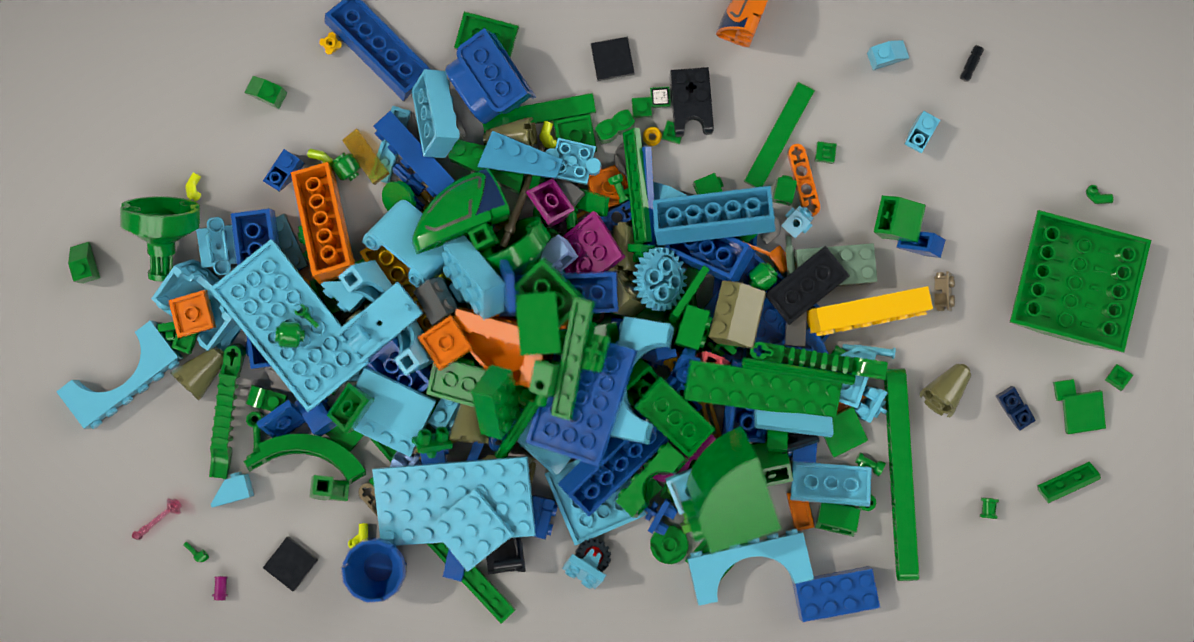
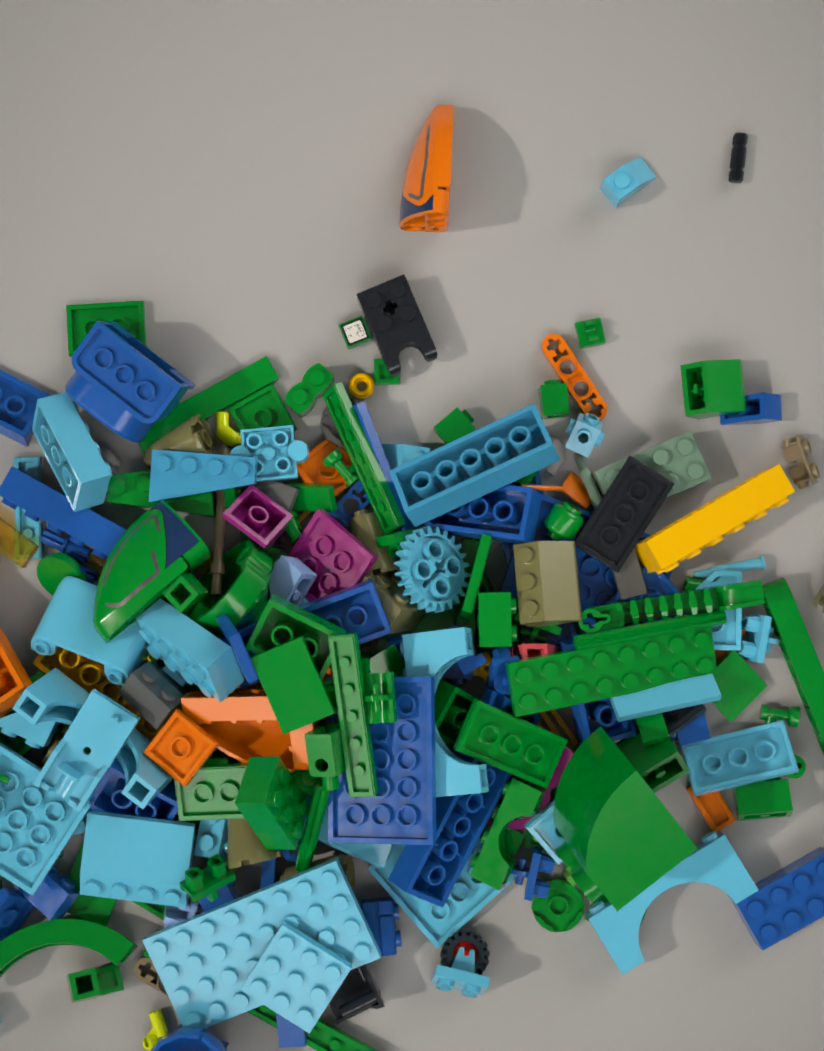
camera: 15 degrees left, 0 degrees up
(349, 408) = (86, 873): green slope -> none
(612, 59) = (277, 303): black tile -> none
(641, 107) = (335, 353): green plate -> none
(779, 135) = (523, 331): green tile -> none
(921, 131) = (703, 267): medium azure slope -> none

